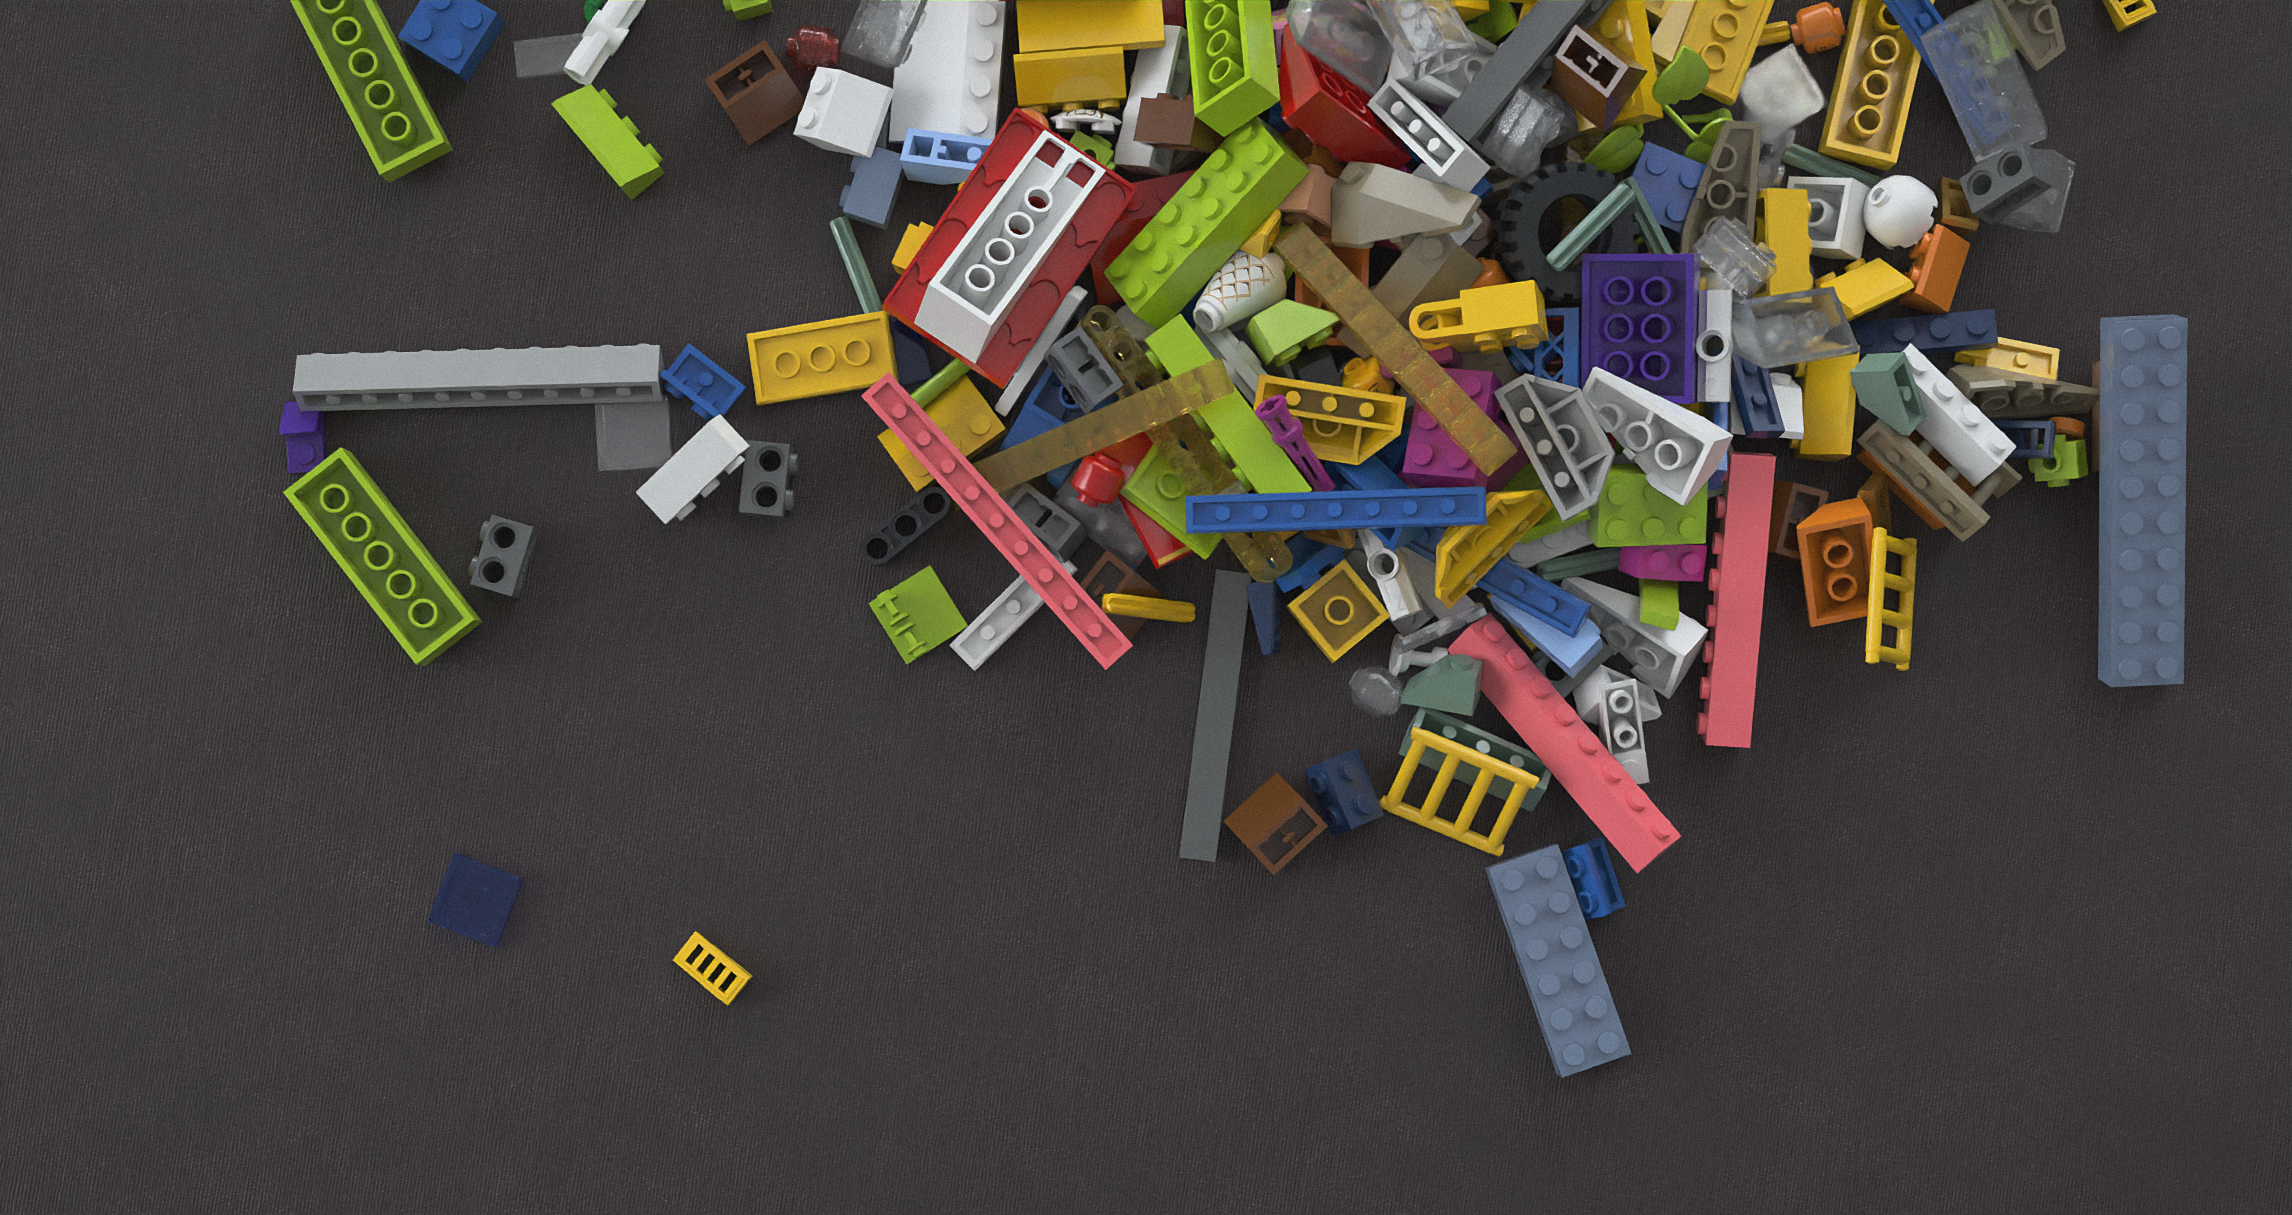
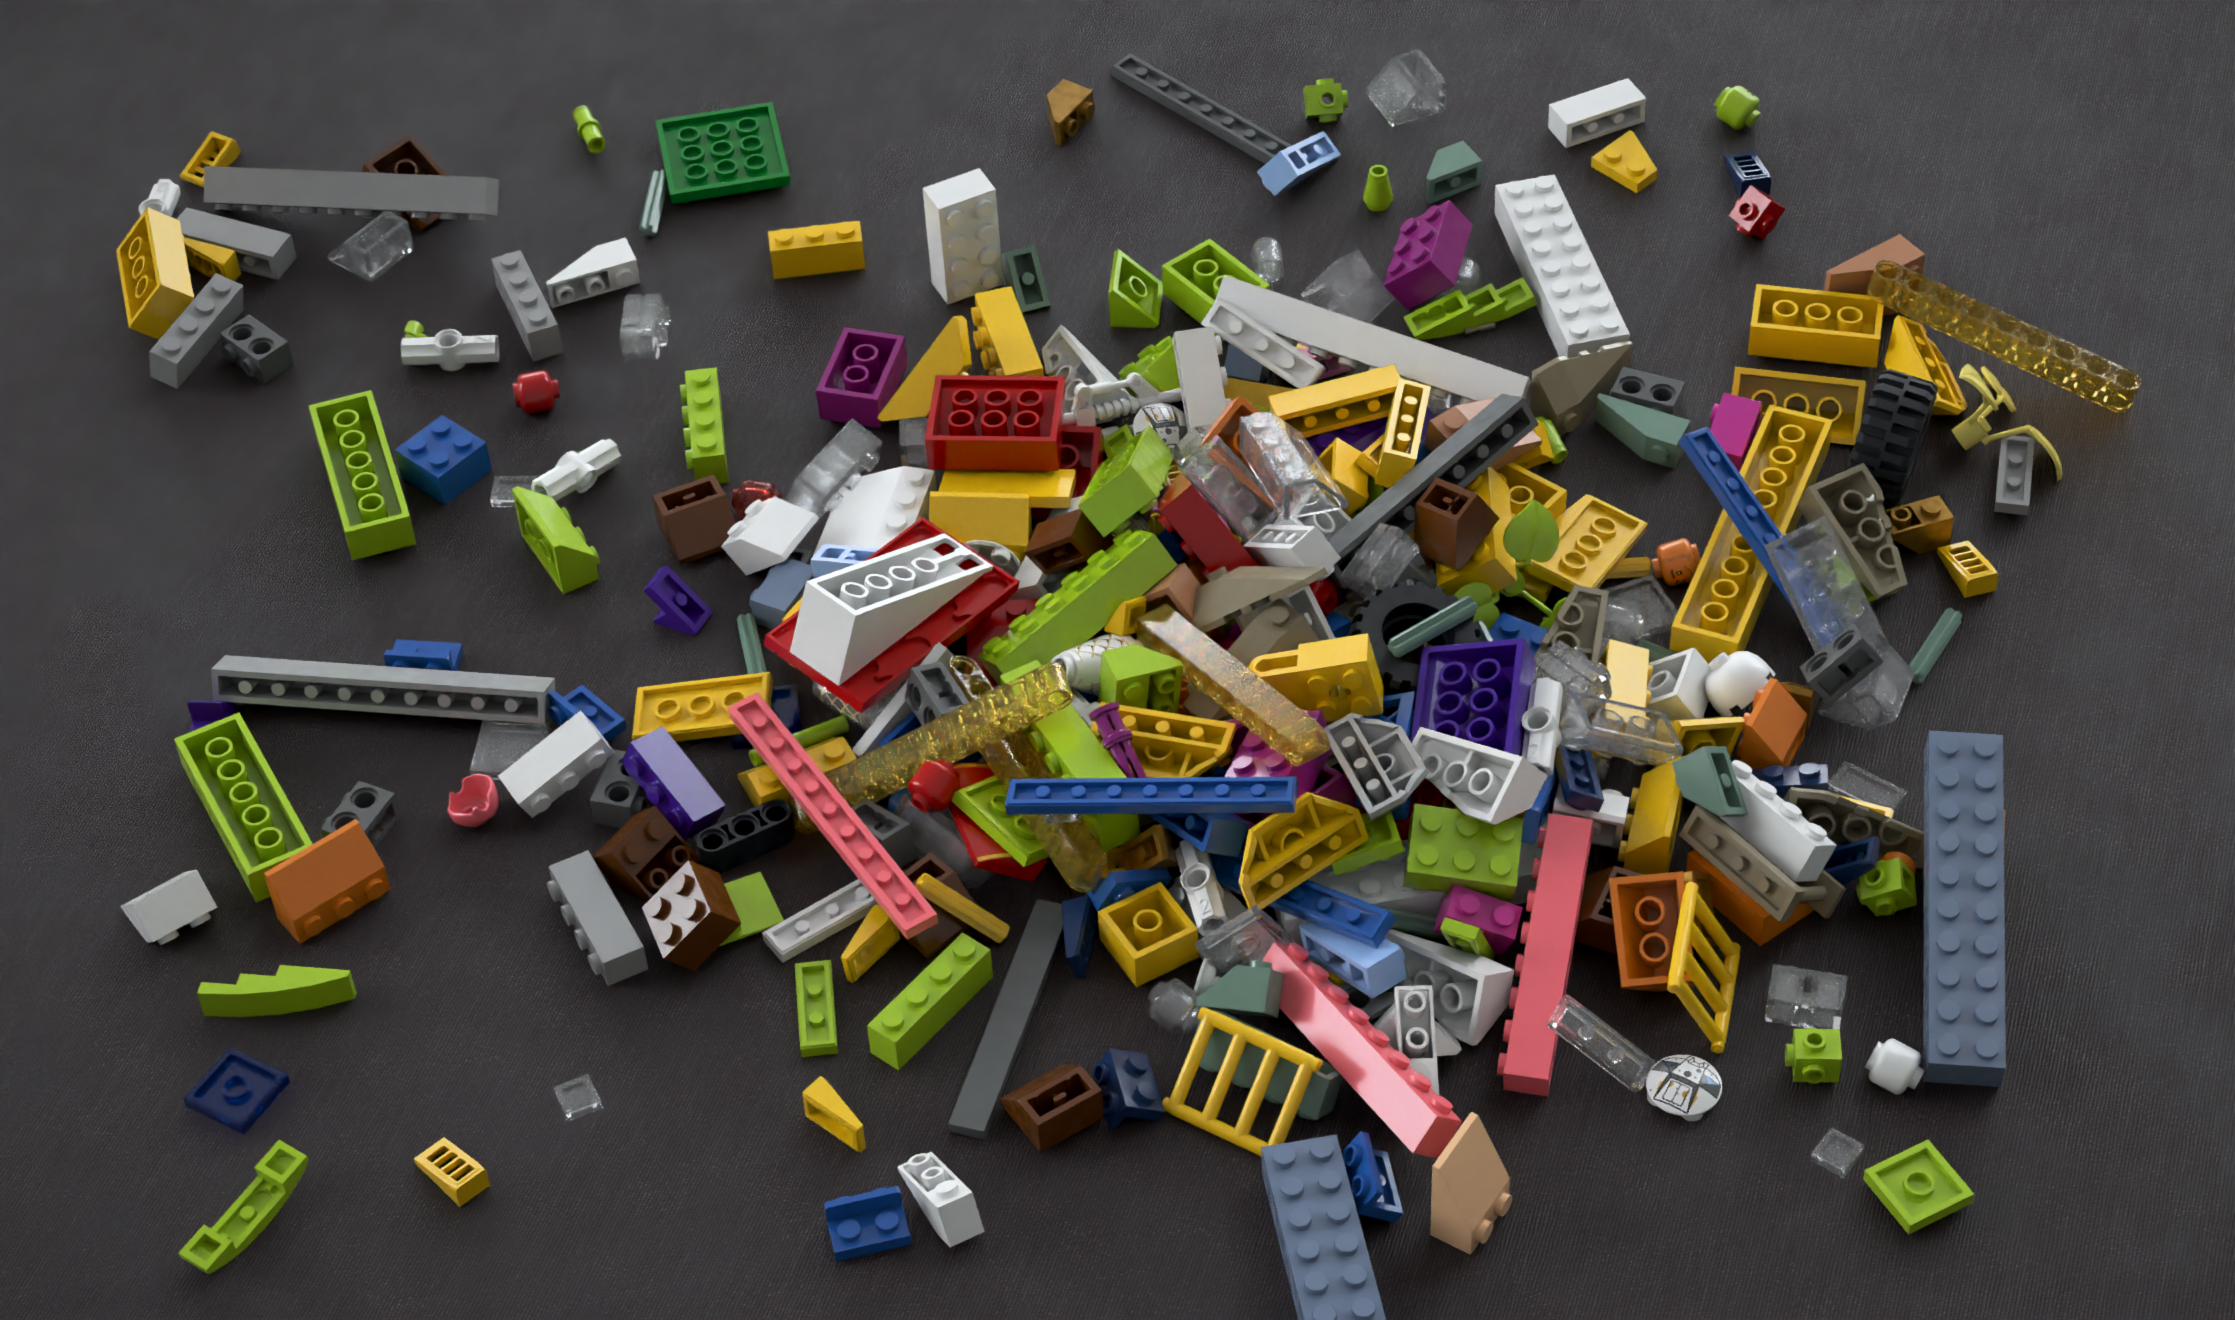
camera: 10 degrees right, 40 degrees down
(339, 689) = (170, 906): none -> white slope
(493, 781) = (287, 992): none -> lime slope
(498, 652) = (326, 882): none -> orange slope
(508, 319) = (424, 655): none -> blue bracket
(529, 1048) = (250, 1213): none -> lime slope
(615, 518) = (475, 802): none -> coral hair
(762, 215) = (678, 603): none -> dark purple slope
(780, 650) = (597, 918): none -> light grey brick
(810, 566) = (644, 854): none -> reddish brown slope
(812, 866) = (577, 1097): none -> clear tile
(819, 482) = (673, 783): none -> brick
(879, 652) = (691, 915): none -> reddish brown brick
(1021, 727) = (816, 1008): none -> lime tile
(1060, 650) = (869, 943): none -> yellow slope
(1060, 856) = (831, 1113): none -> yellow slope
(1125, 983) = (867, 1223): none -> blue bracket
(1136, 716) = (930, 1001): none -> lime brick
(1187, 943) = (942, 1198): none -> white slope
(1689, 892) = (1468, 1188): none -> light nougat slope
(1796, 695) = (1601, 1043): none -> clear tile
(1874, 718) = (1684, 1086): none -> white dish
(2006, 611) = (1805, 998): none -> clear brick
(2010, 674) = (1814, 1055): none -> lime brick
(2022, 777) = (1837, 1152): none -> clear tile
(2030, 318) = (1864, 786): none -> clear tile
(2074, 677) = (1894, 1066): none -> white head
(2090, 110) = (1935, 644): none -> sand green axle
(2101, 813) = (1918, 1186): none -> lime plate

